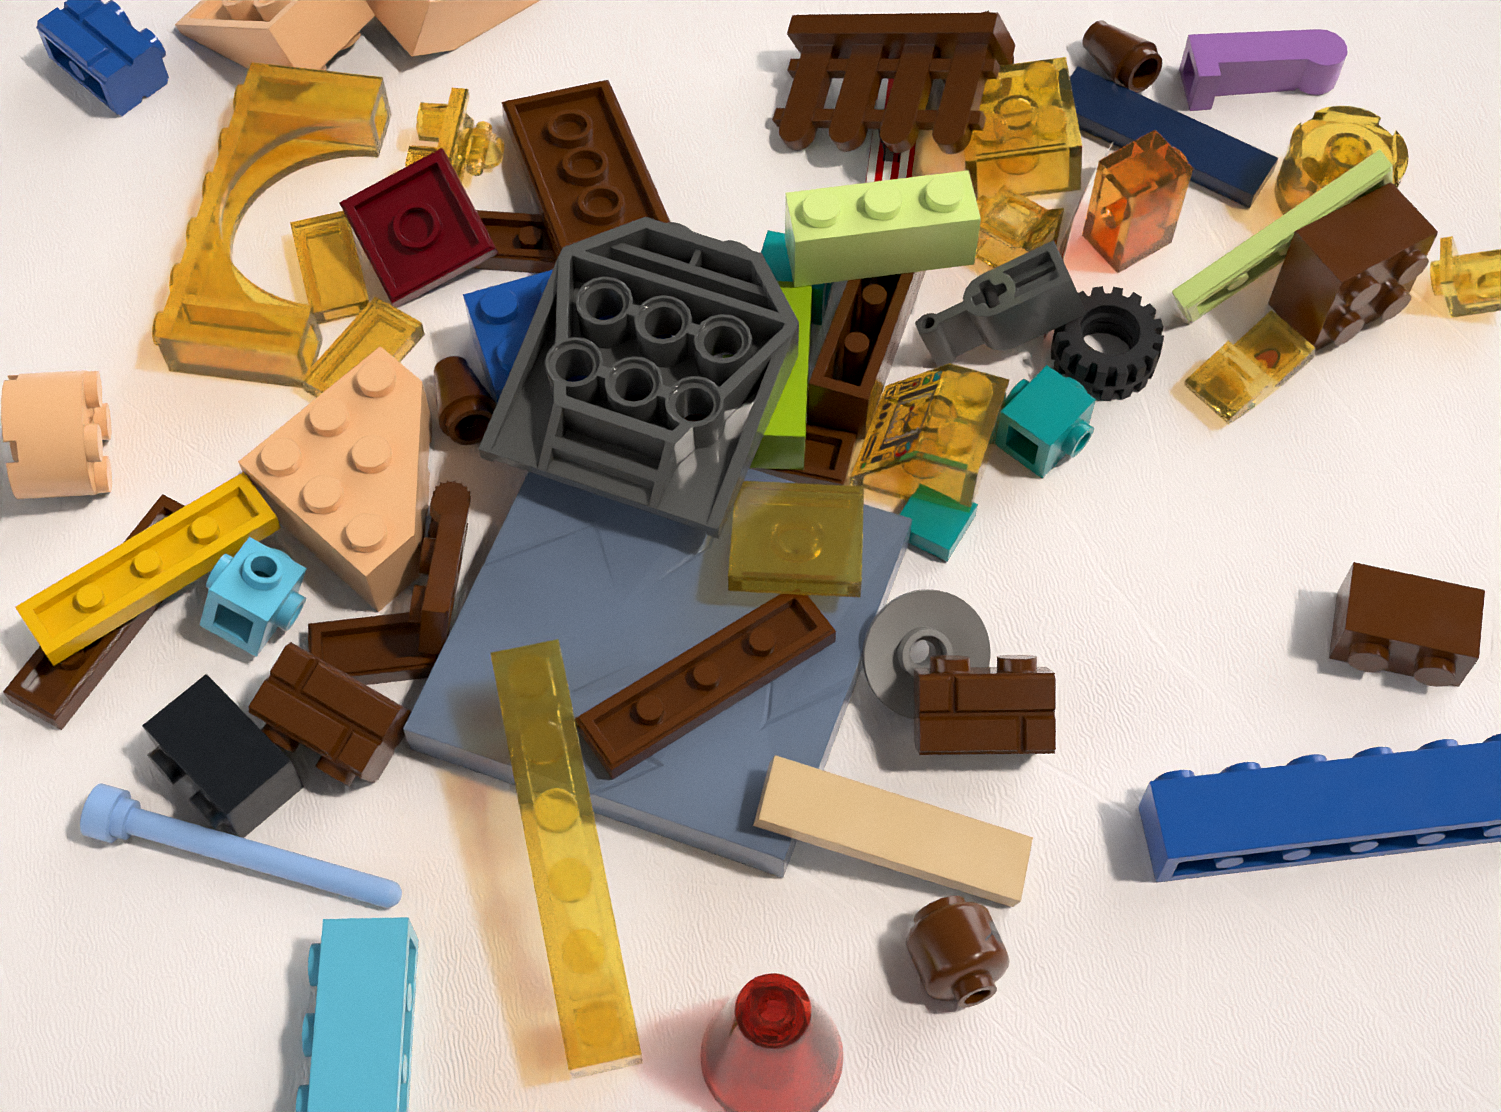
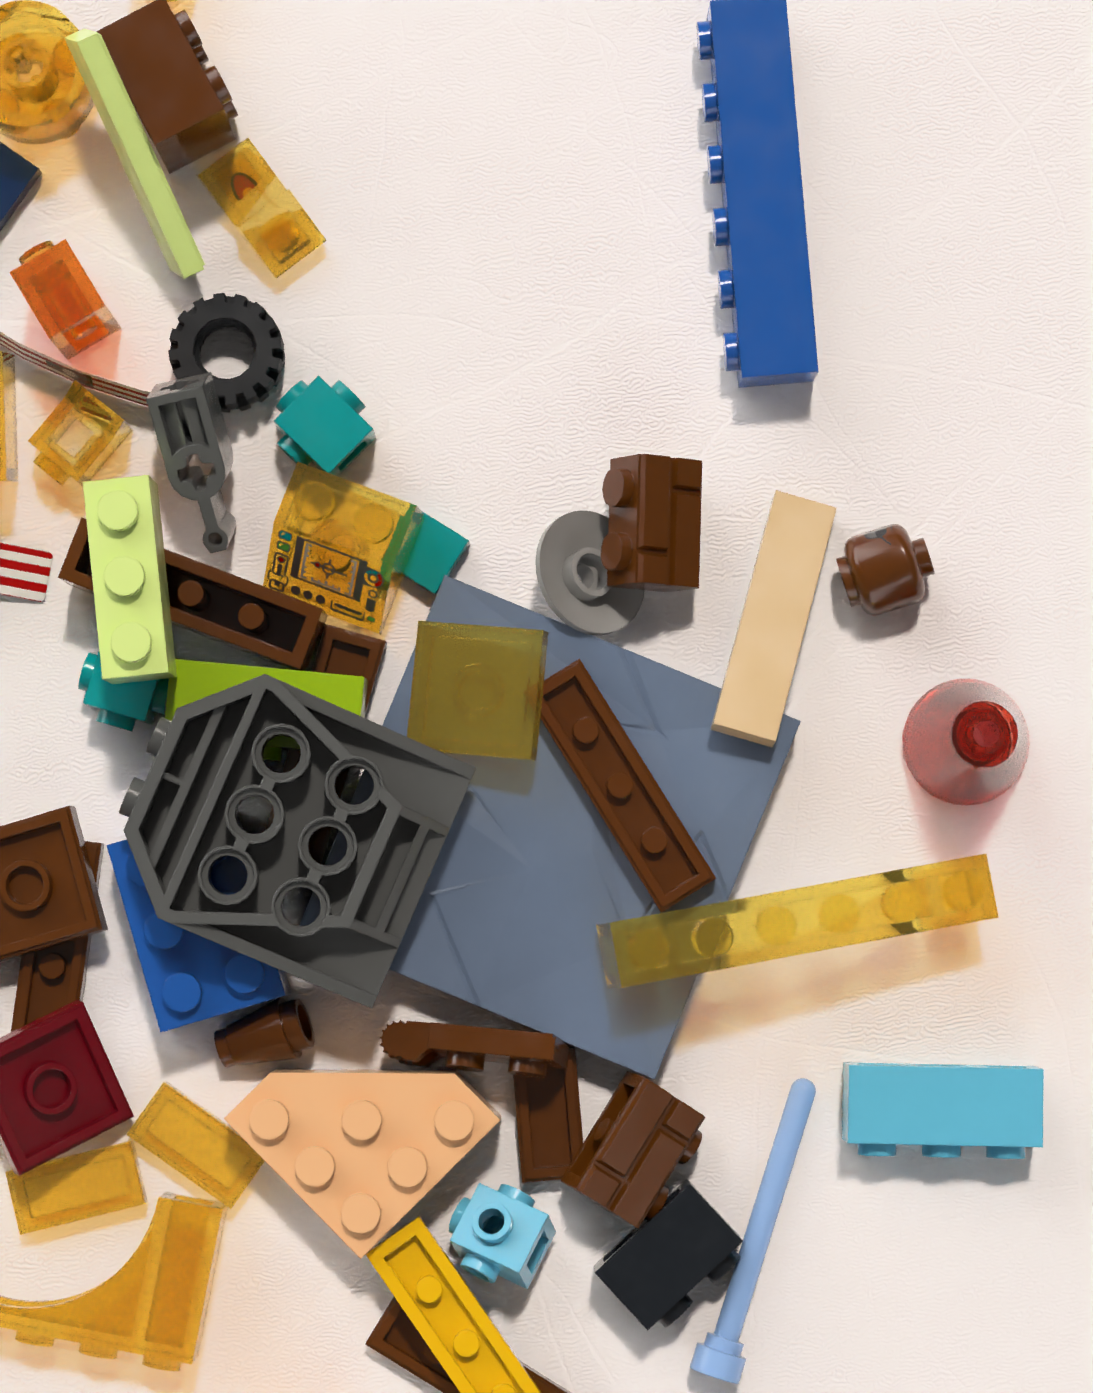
camera: 90 degrees left, 25 degrees up
(1407, 625) = (575, 107): reddish brown brick -> none

